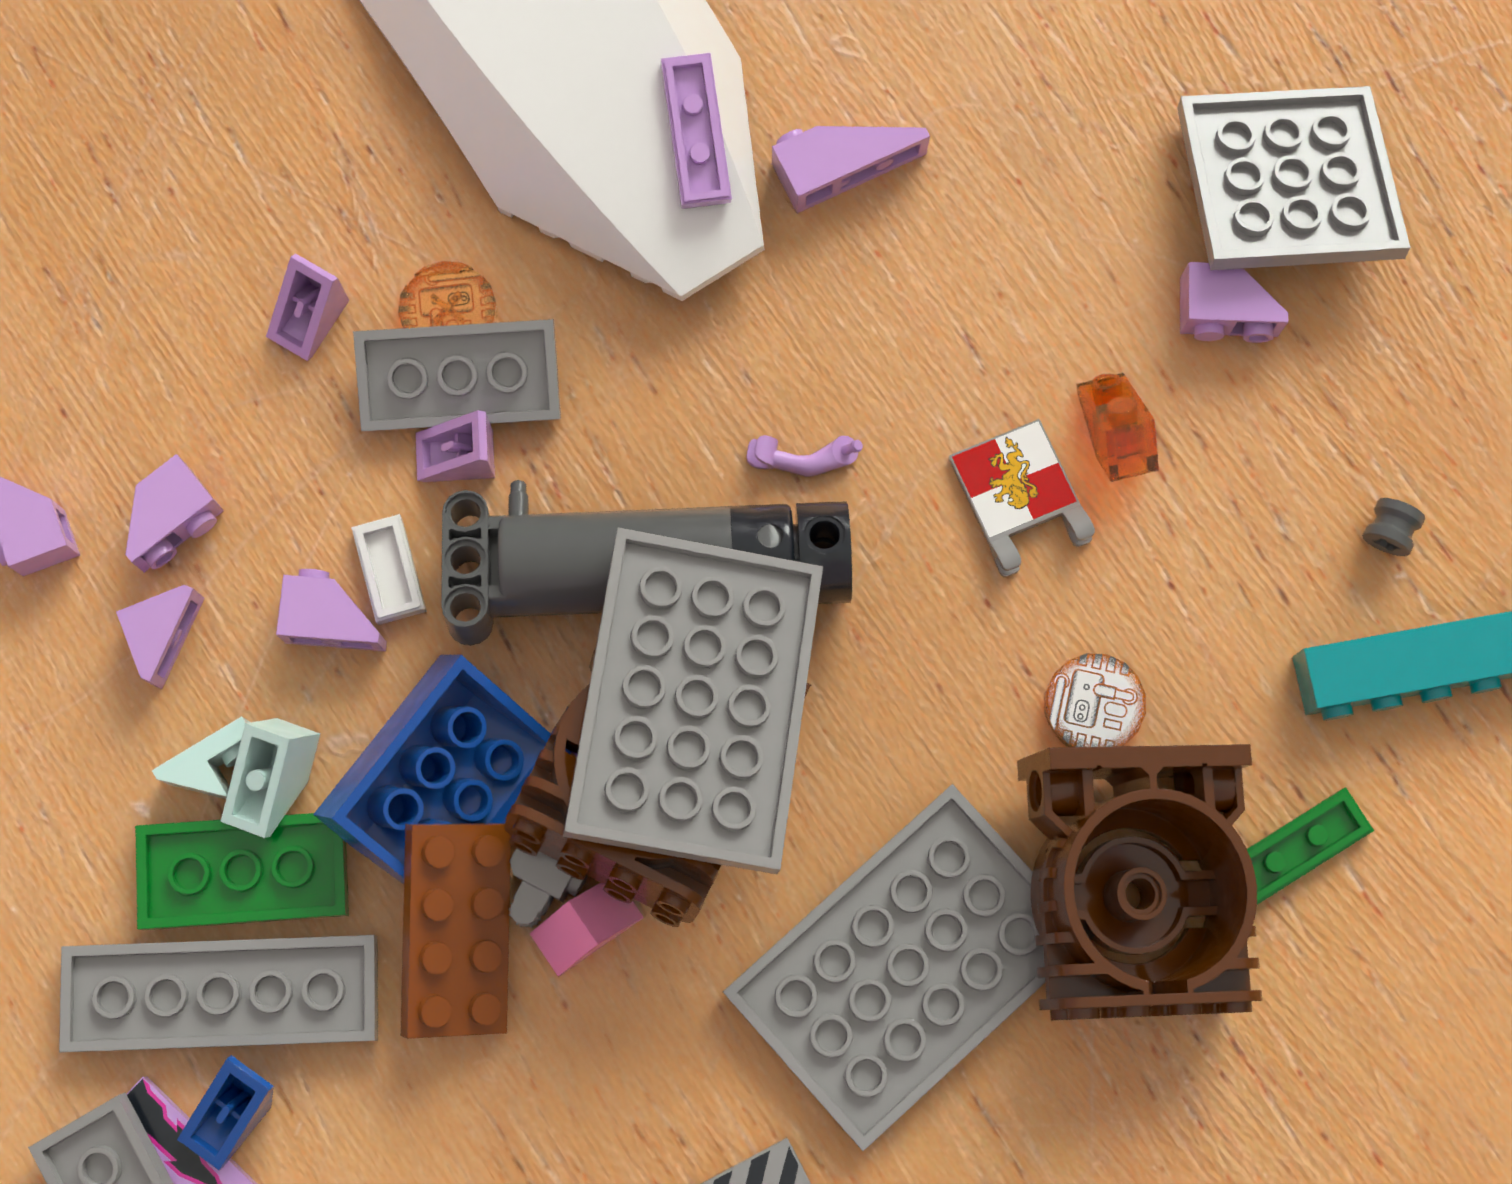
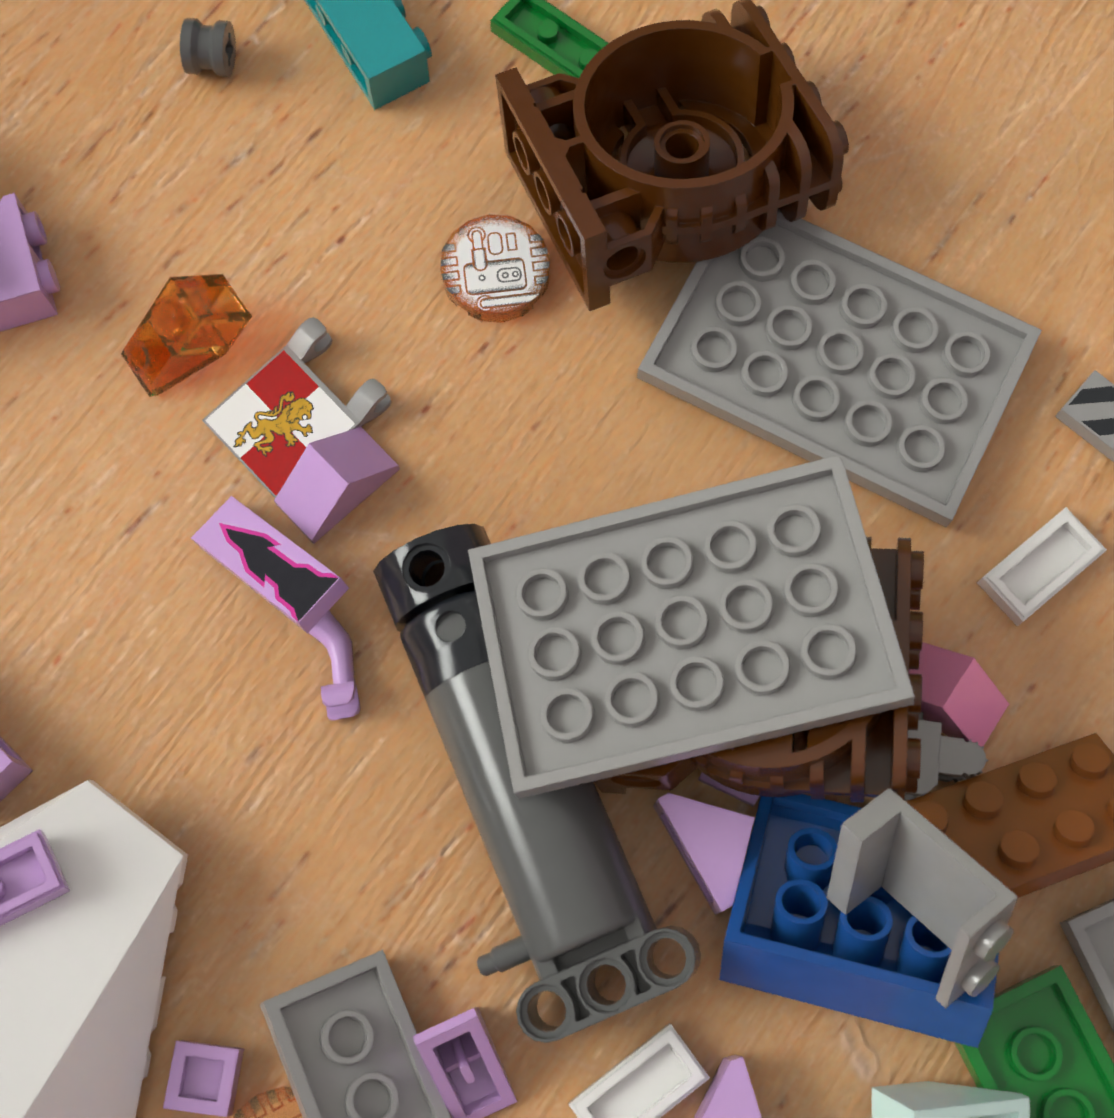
camera: 110 degrees left, 5 degrees down
(477, 784) = (933, 879): none -> light grey panel
(522, 269) = (203, 1078): none -> lavender tile
(542, 686) = (710, 842): none -> lavender slope
(659, 1058) = (1041, 566): none -> white tile
(887, 428) = (270, 564): none -> tile
(947, 507) = (333, 480): none -> lavender slope

